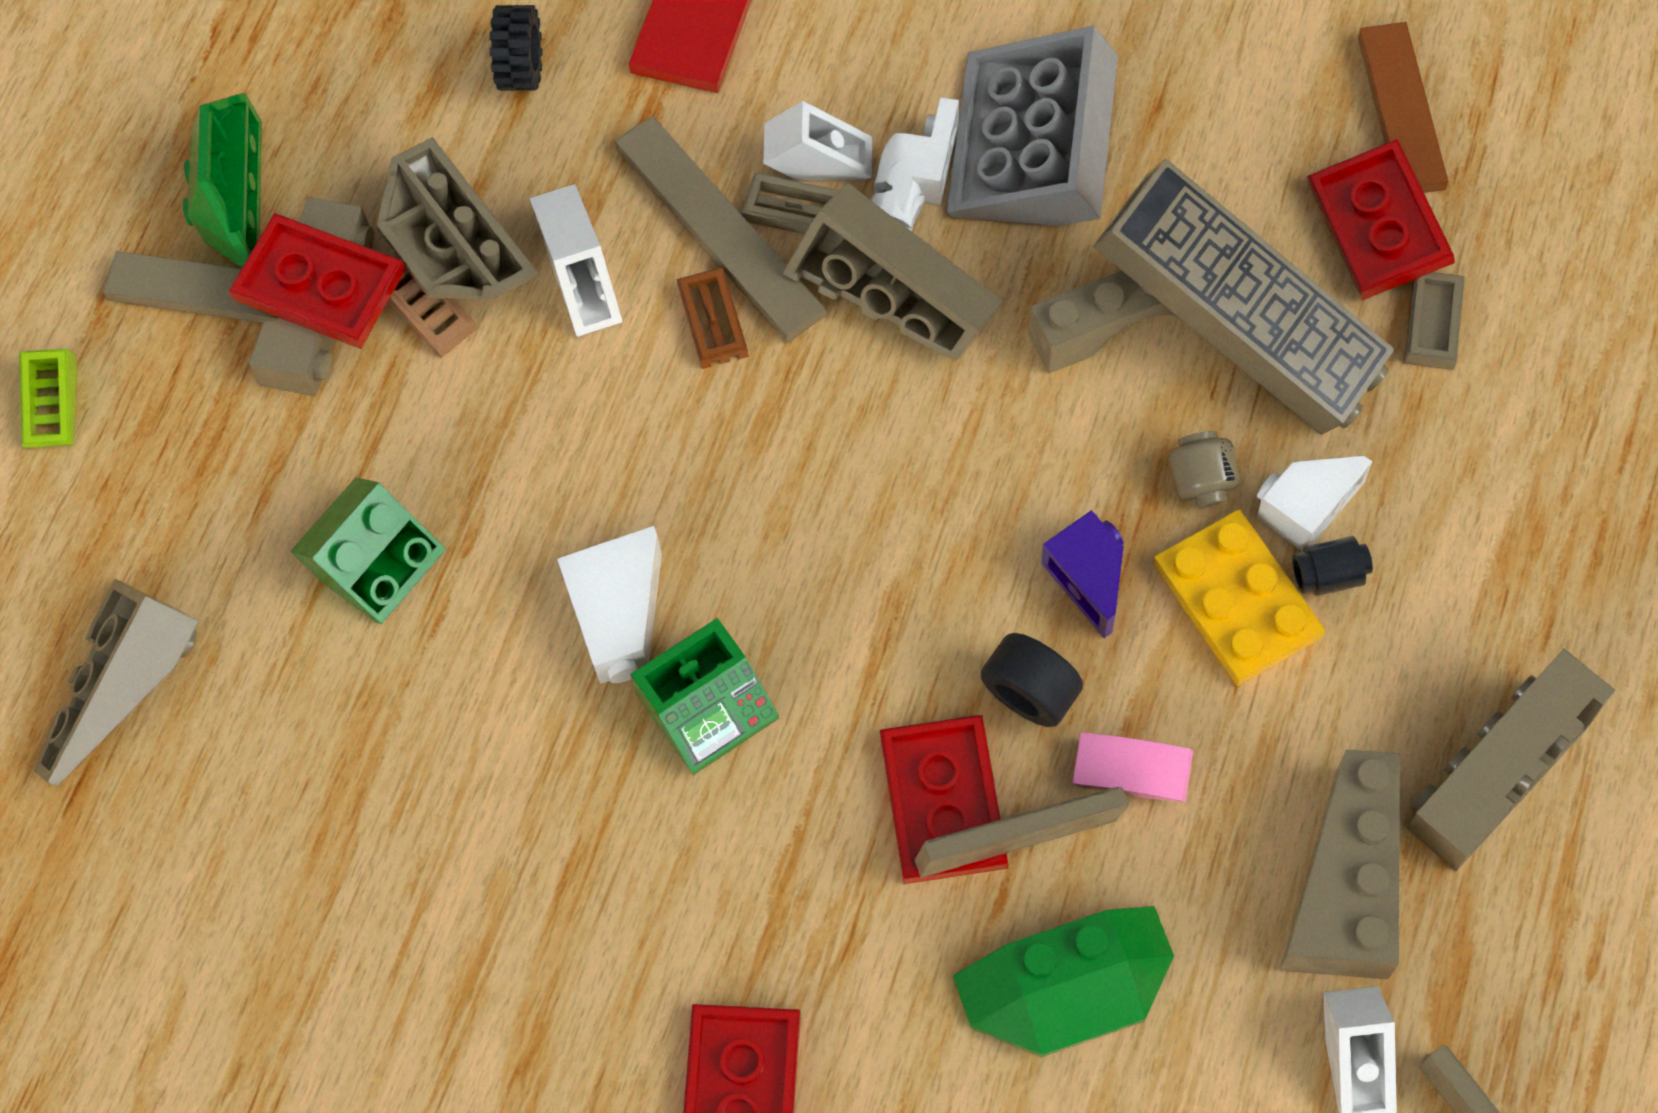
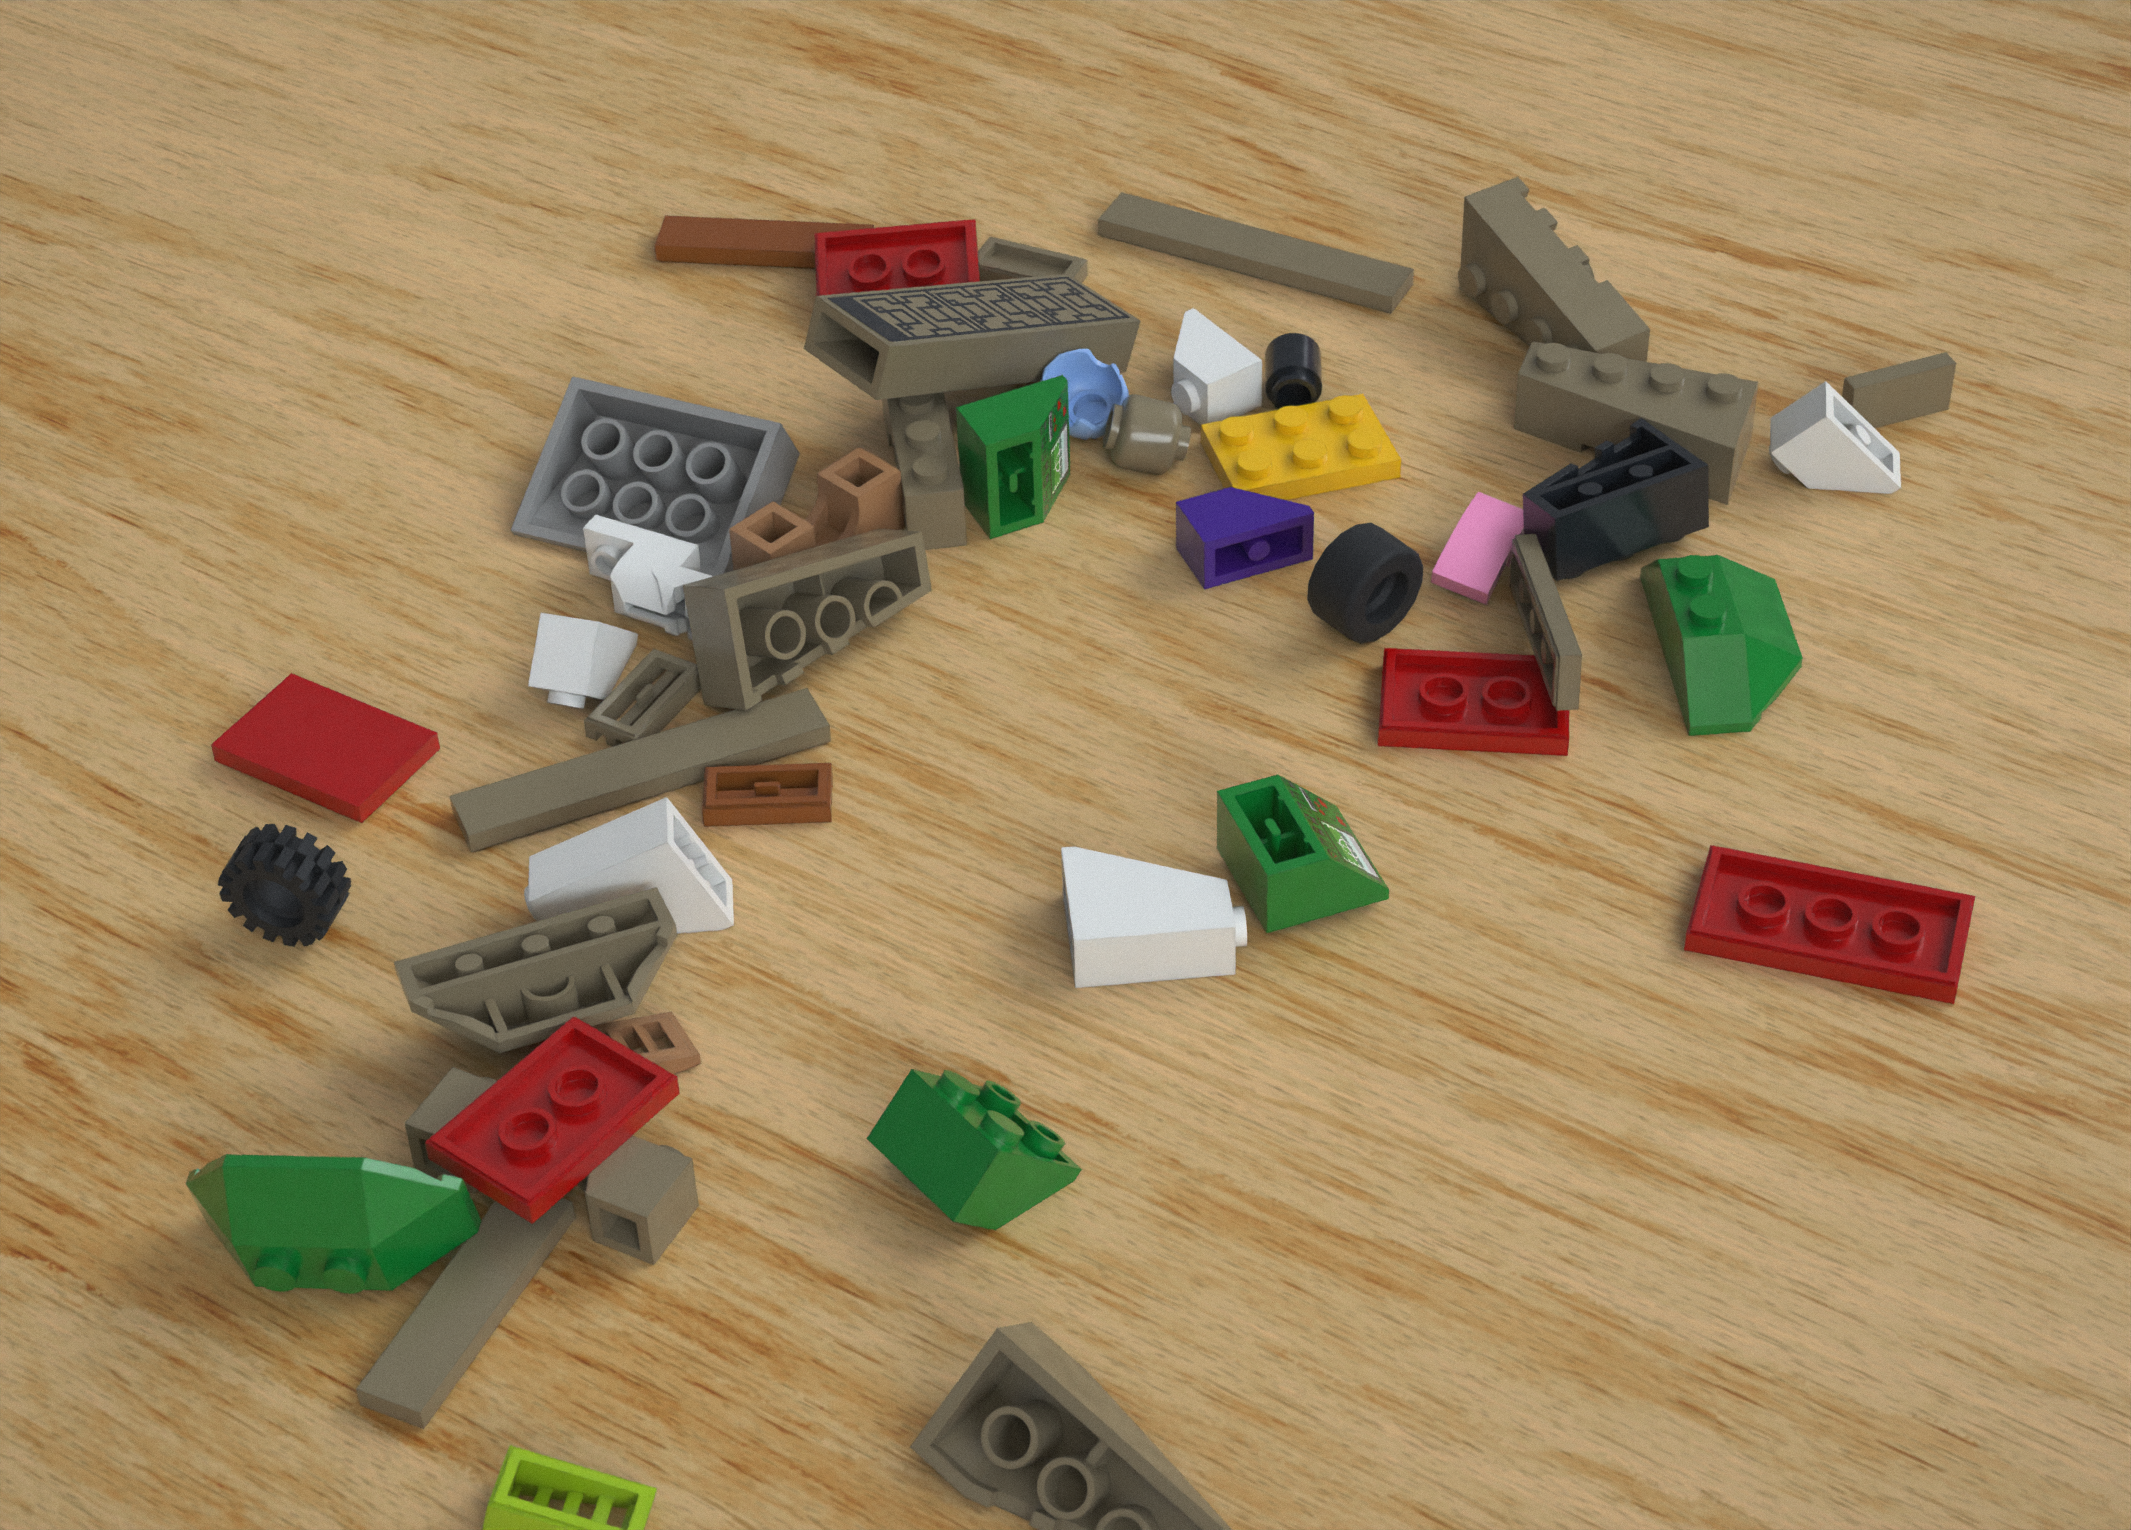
camera: 80 degrees left, 25 degrees down
(1009, 272) = (852, 499): none -> medium nougat arch
(1119, 375) = (1014, 455): none -> green slope
(1204, 866) = (1618, 502): none -> black wedge
(1238, 405) = (1091, 390): none -> light blue hair
(1524, 500) = (1256, 252): none -> dark tan tile

